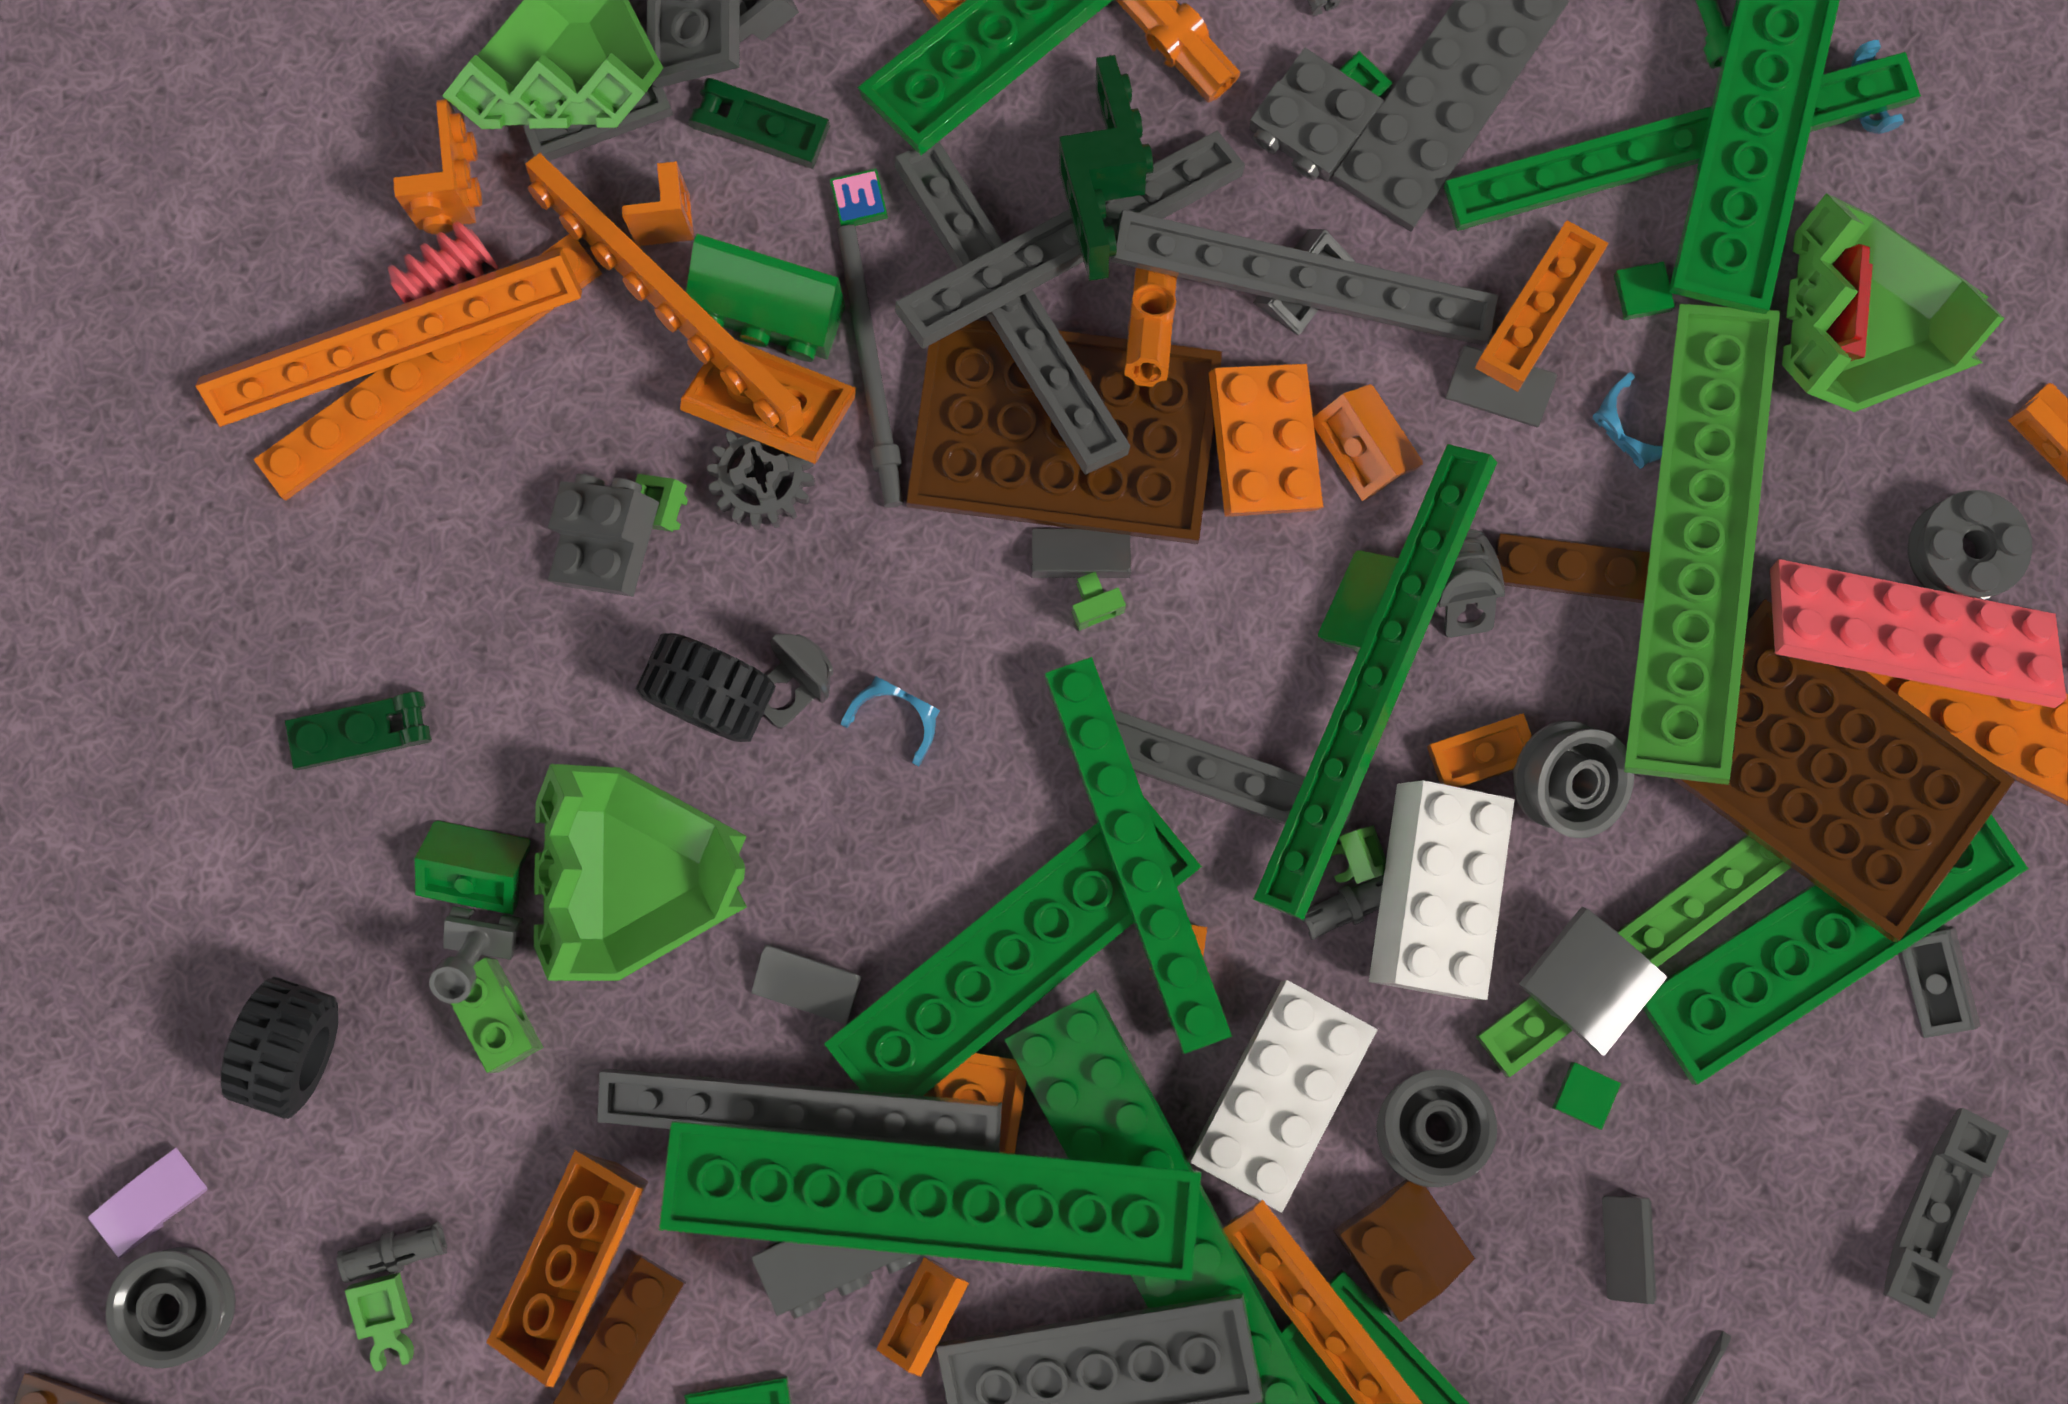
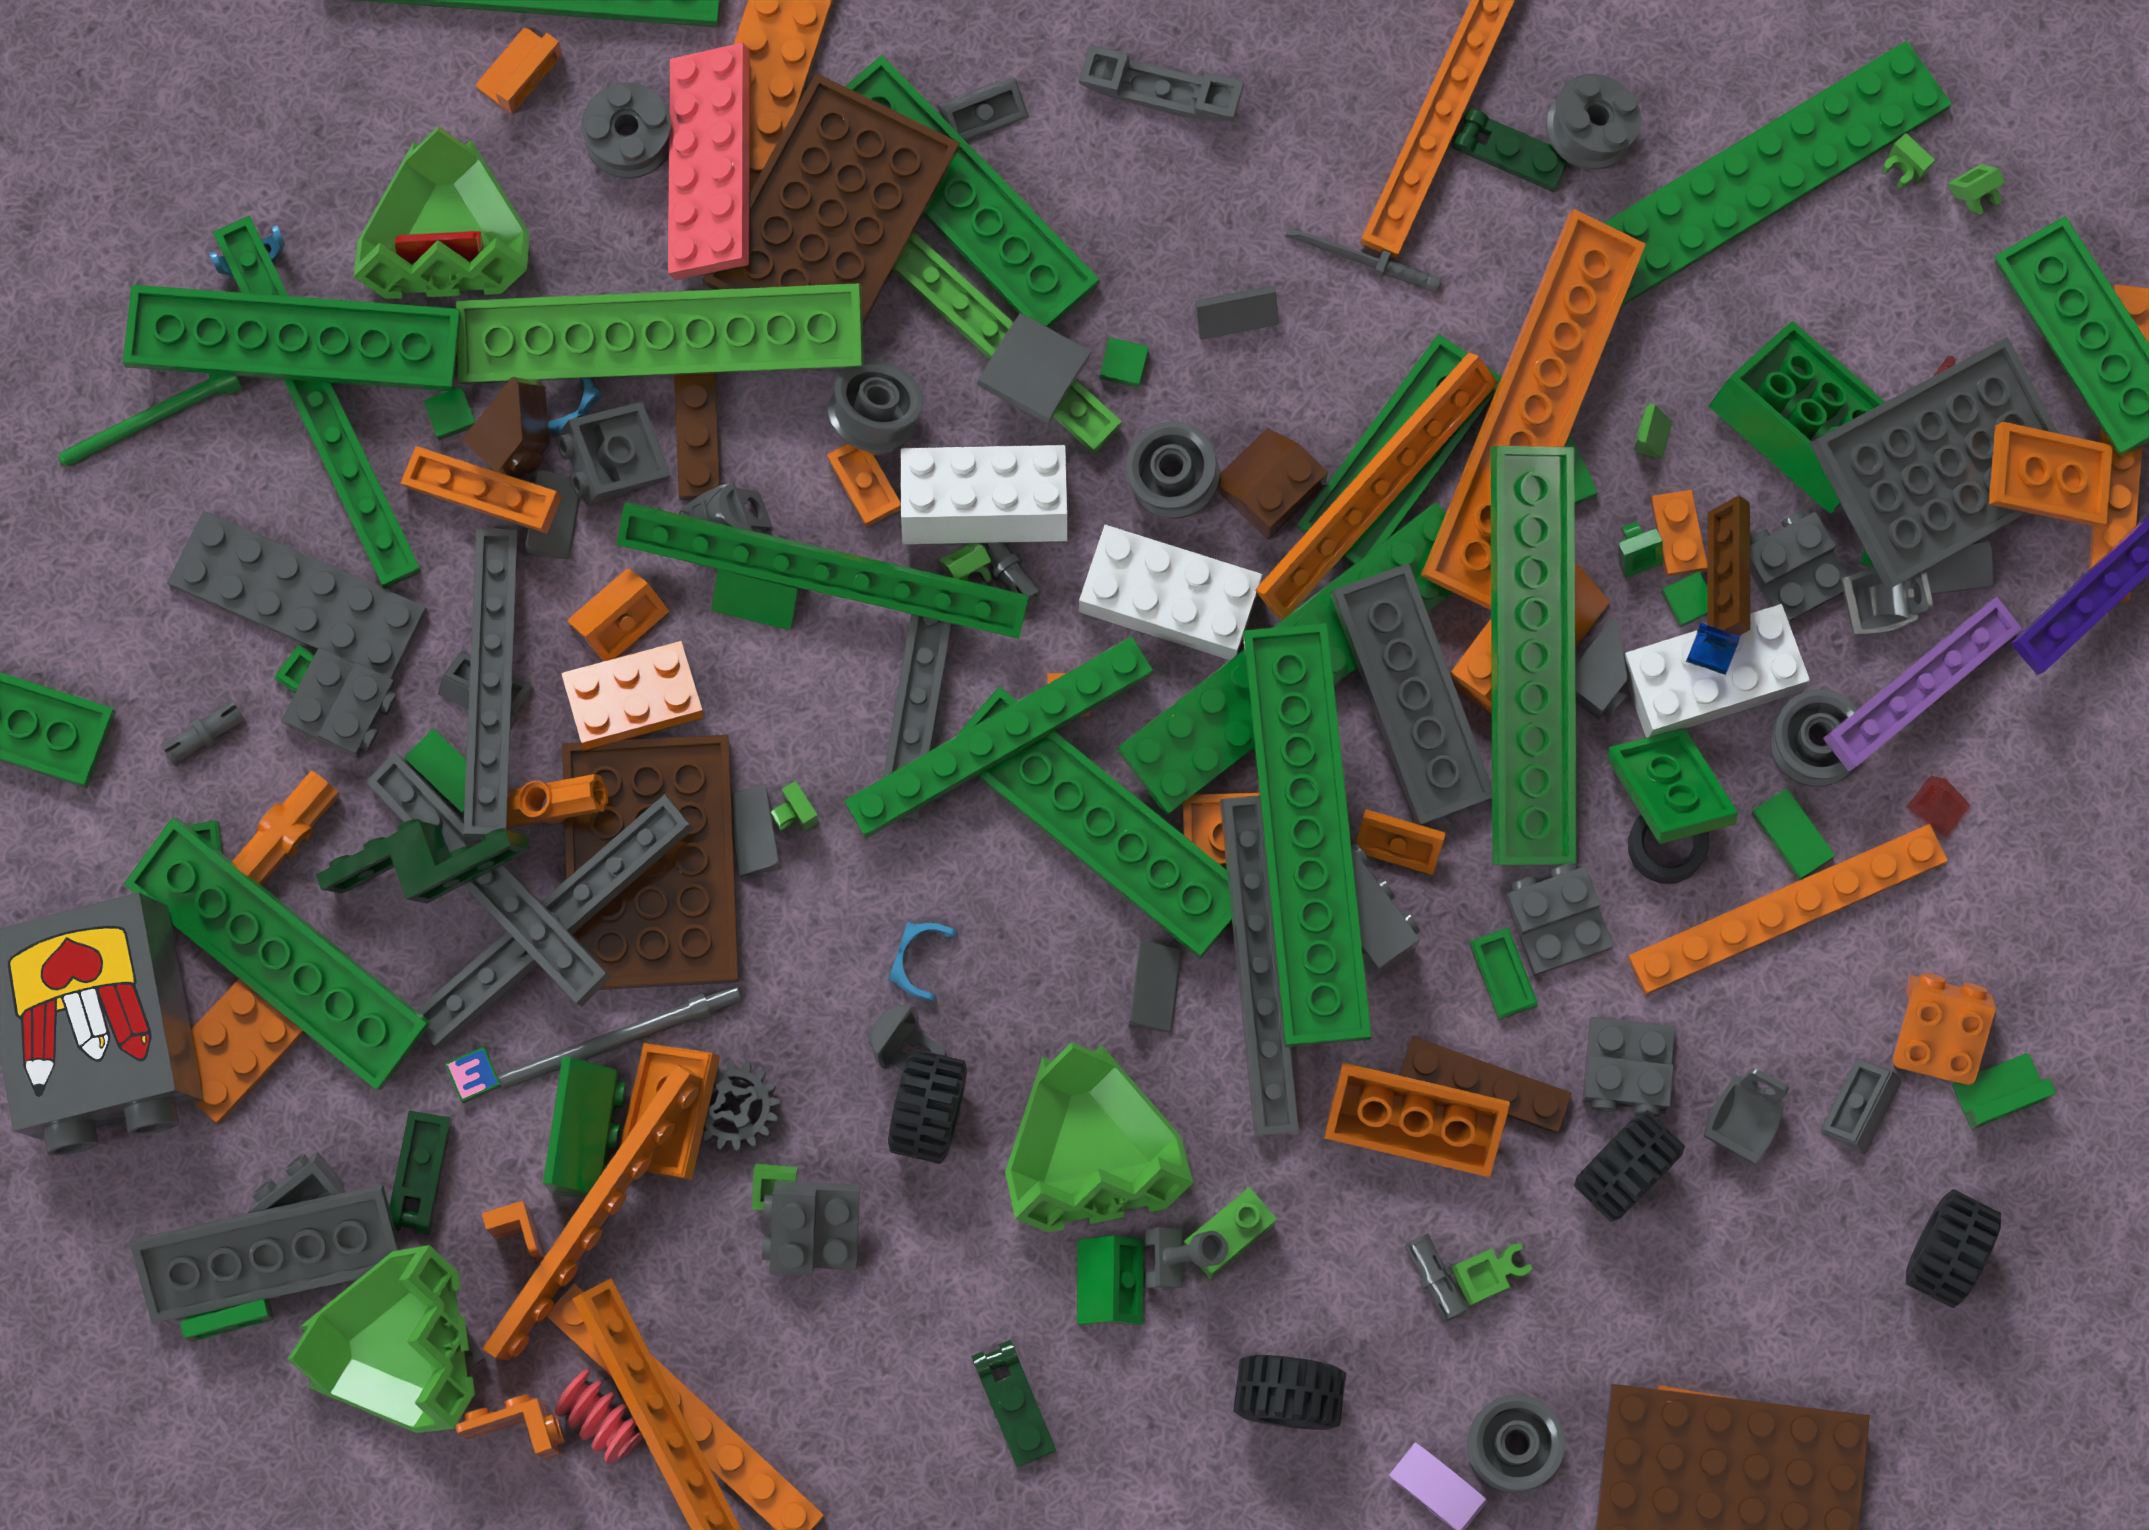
camera: 100 degrees left, 5 degrees down
(1228, 210) = (441, 767): none -> green tile
(1564, 464) = (612, 453): none -> dark grey plate
(1610, 347) = (512, 428): none -> reddish brown slope

